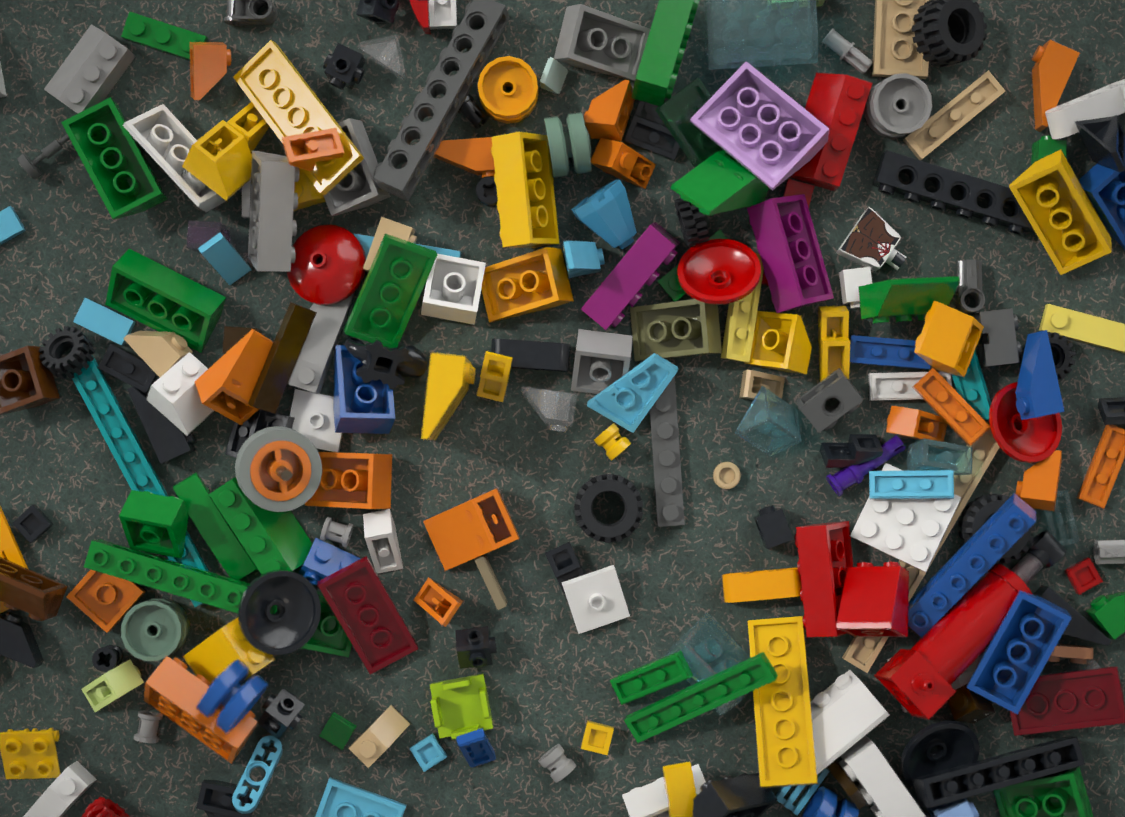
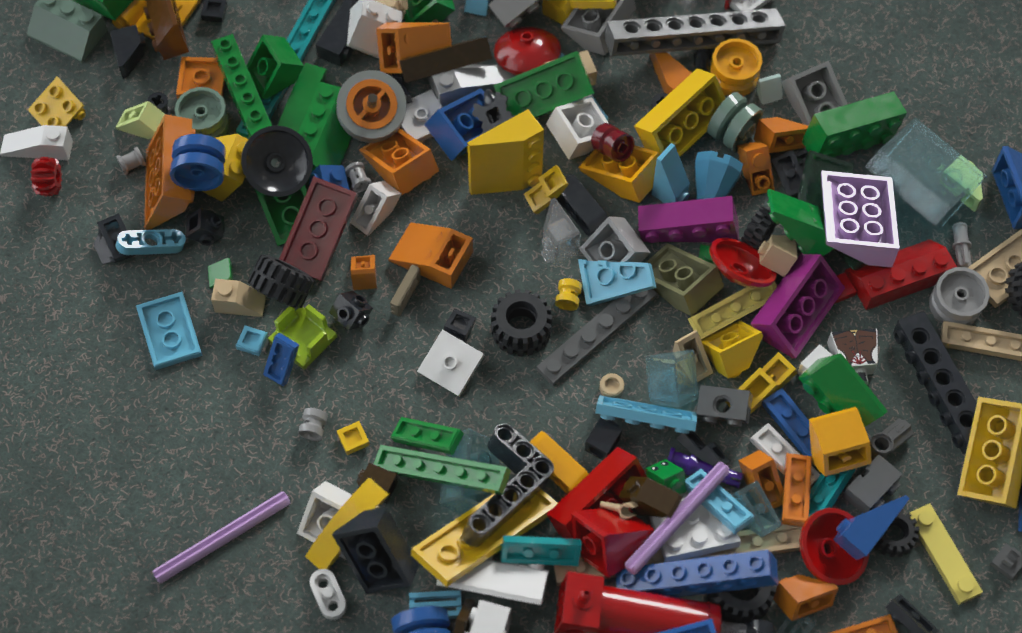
camera: 50 degrees right, 25 degrees down
(401, 693) = (281, 281): none -> black tyre
(500, 278) = (612, 142): none -> dark red wheel
(656, 751) = (384, 478): none -> dark brown brick
(735, 231) = (778, 254): none -> tan slope
(777, 651) = (532, 475): none -> black beam
(783, 475) = (638, 412): none -> medium azure plate
(839, 672) = (540, 550): none -> teal plate
(857, 510) = (667, 475): none -> green brick
(865, 575) = (622, 509): none -> tan hand
(869, 543) = (650, 497): none -> dark brown slope
(905, 536) = (670, 525): none -> lavender axle

